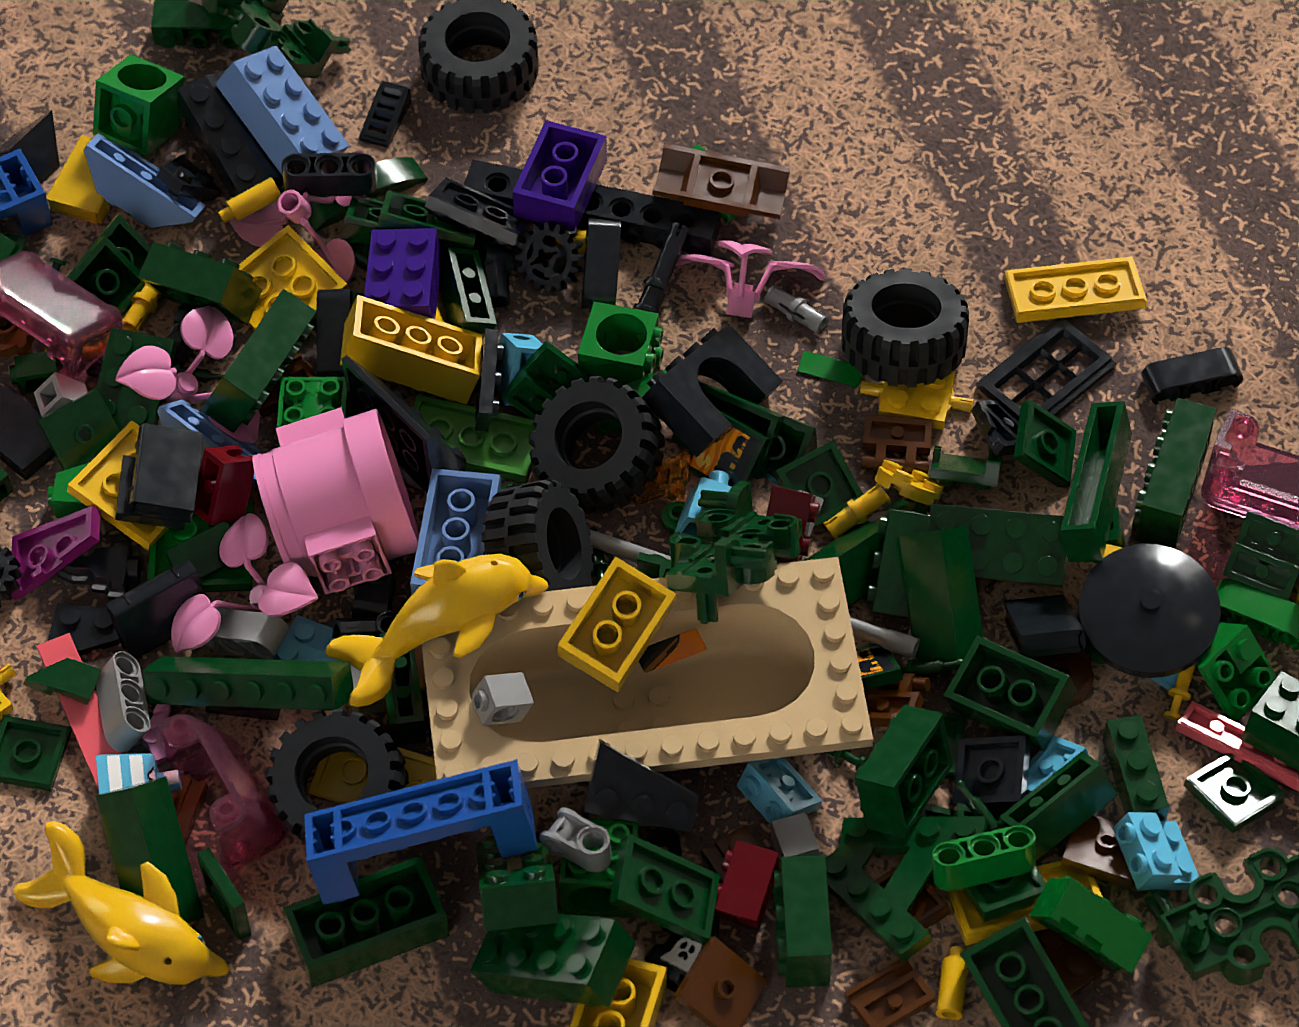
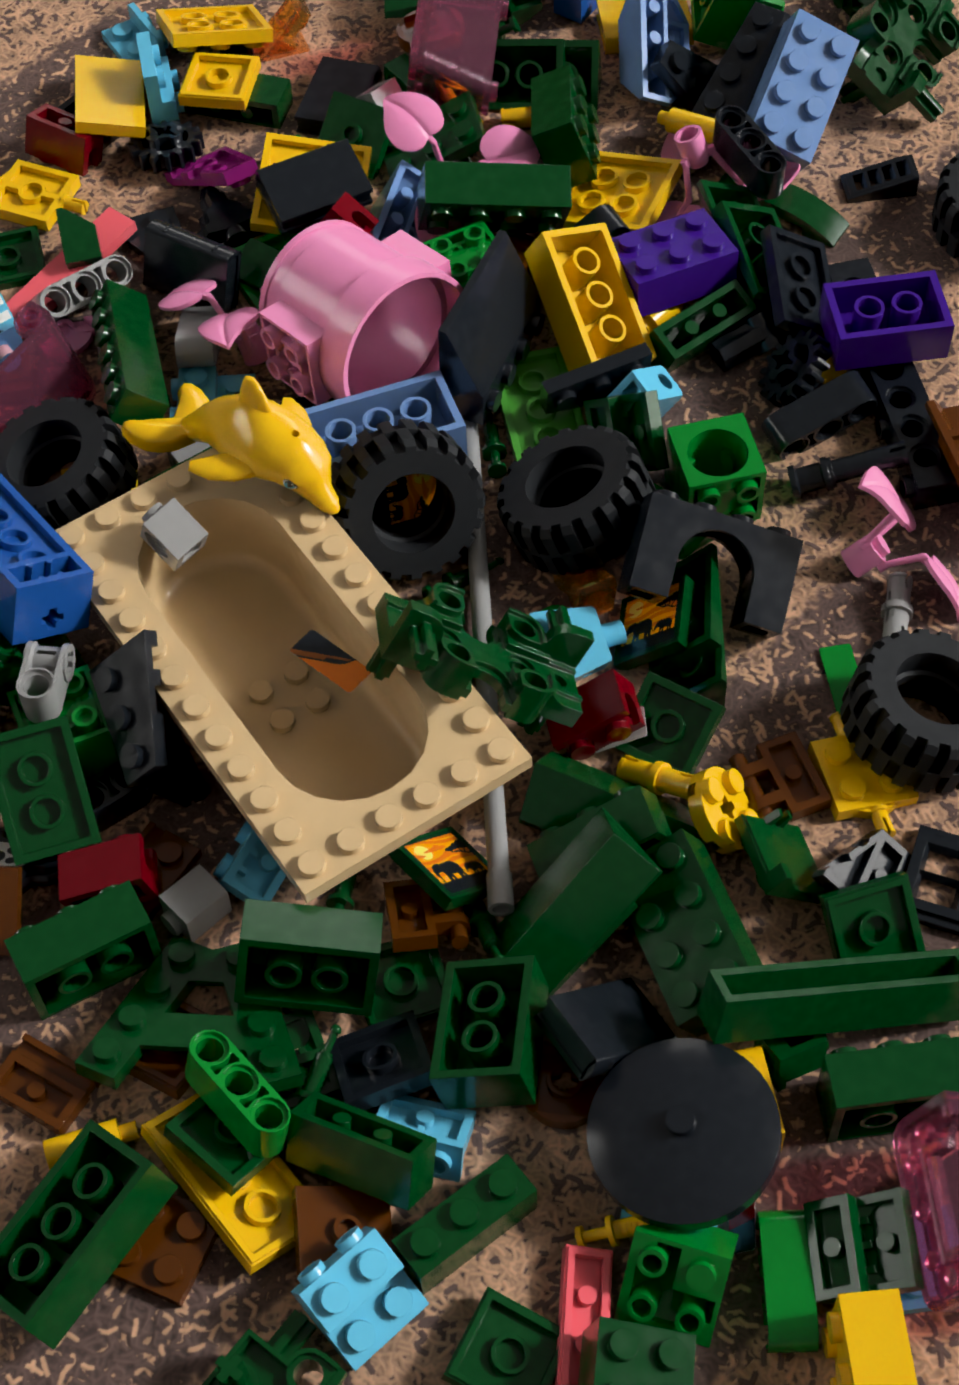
camera: 65 degrees right, 0 degrees up
(616, 624) = (306, 584): yellow brick -> none
(1091, 923) = (203, 1253): green wedge -> none

